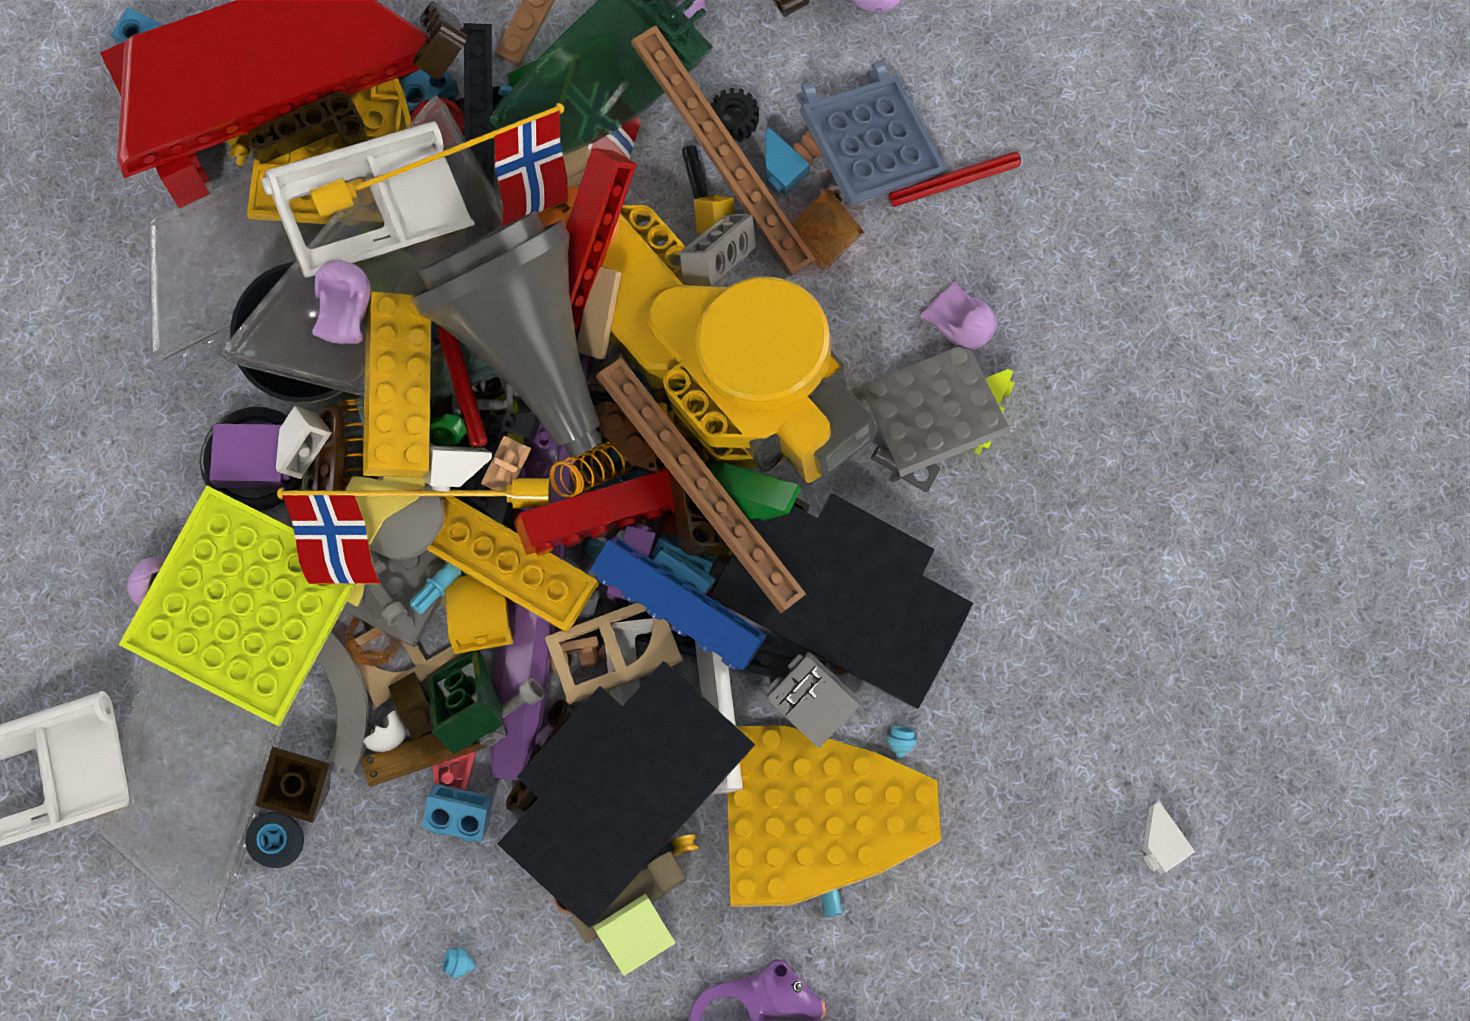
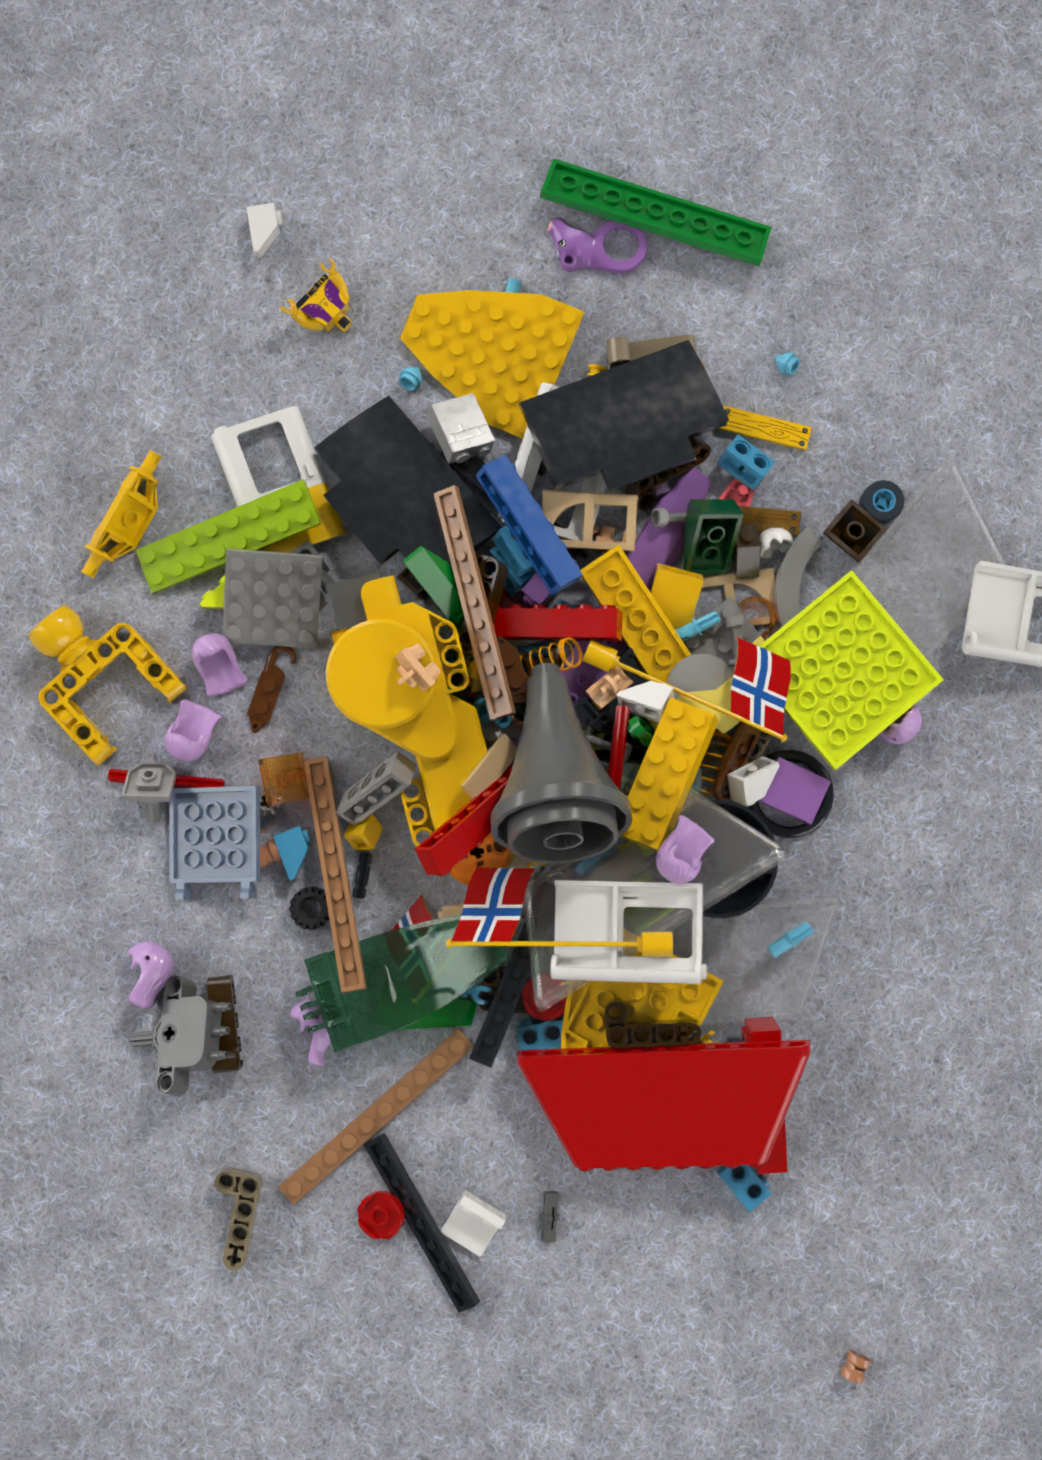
camera: 160 degrees left, 10 degrees up
(189, 292) = (790, 939): none -> medium azure axle
(443, 43) = (509, 1064): dark brown beam -> none
(452, 871) = (766, 428): none -> yellow tile
(634, 934) = (658, 325): yellowish green tile -> none
(735, 363) = (413, 671): none -> light nougat hips
(892, 319) = (268, 689): none -> reddish brown plate
(953, 235) = (191, 731): none -> lavender piece
(962, 515) = (243, 486): none -> white piece
(968, 160) = (149, 784): none -> light grey piece
(1017, 459) = (244, 527): none -> lime plate
(1046, 778) = (323, 304): none -> yellow torso
(1110, 257) = (62, 637): none -> yellow piece
(1142, 433) = (126, 517): none -> yellow plate

